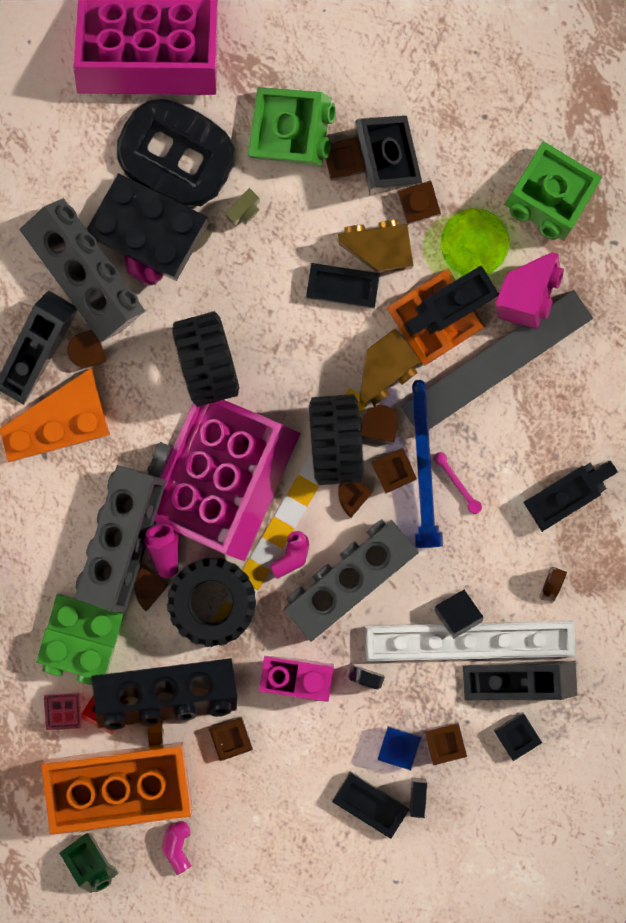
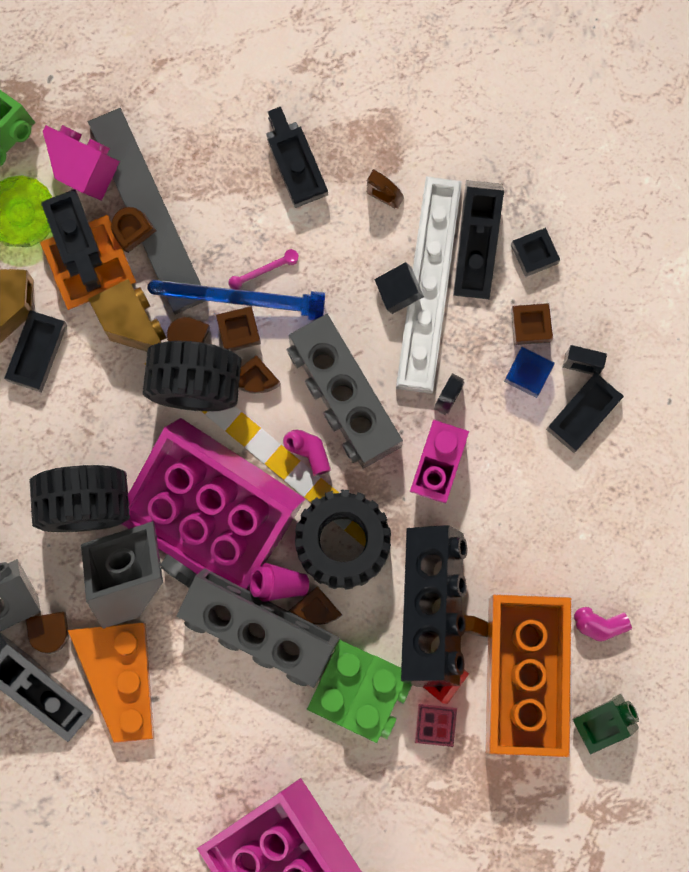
camera: 80 degrees left, 10 degrees down
(148, 408) = (121, 573): none -> dark grey slope
(230, 738) = (493, 547): reddish brown tile -> none
(474, 352) = (131, 228): none -> reddish brown tile

